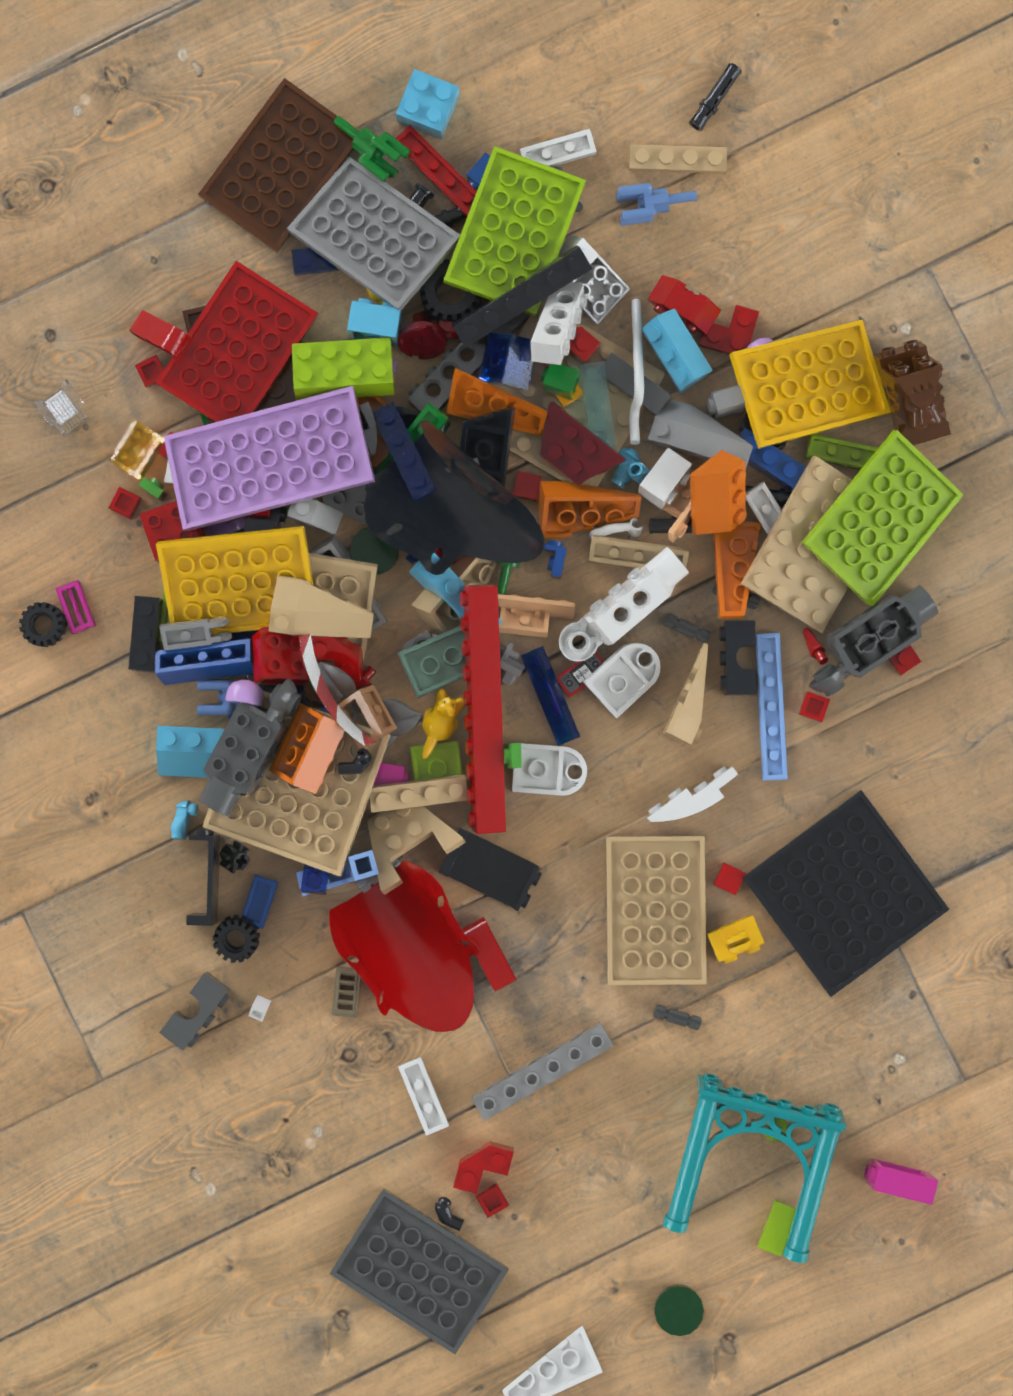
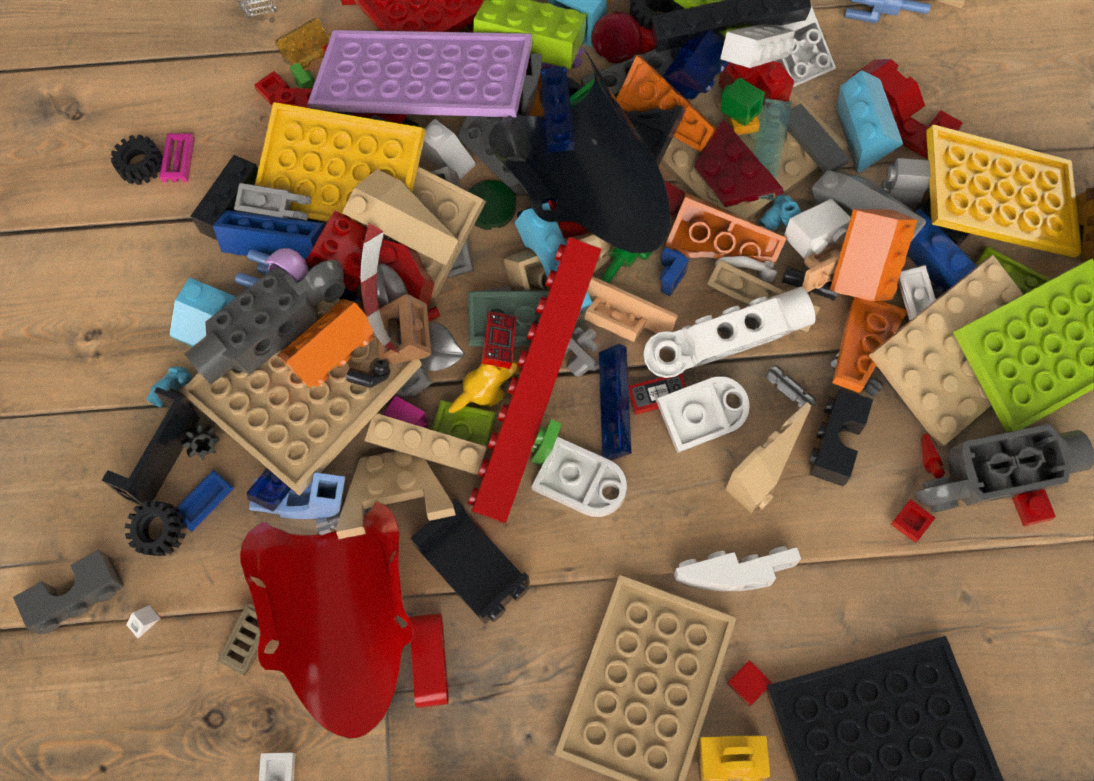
camera: 20 degrees right, 20 degrees down
(443, 690) = (499, 340): none -> tile
(638, 372) = (820, 133): white piece -> none
(771, 706) = (860, 507): light blue tile -> none

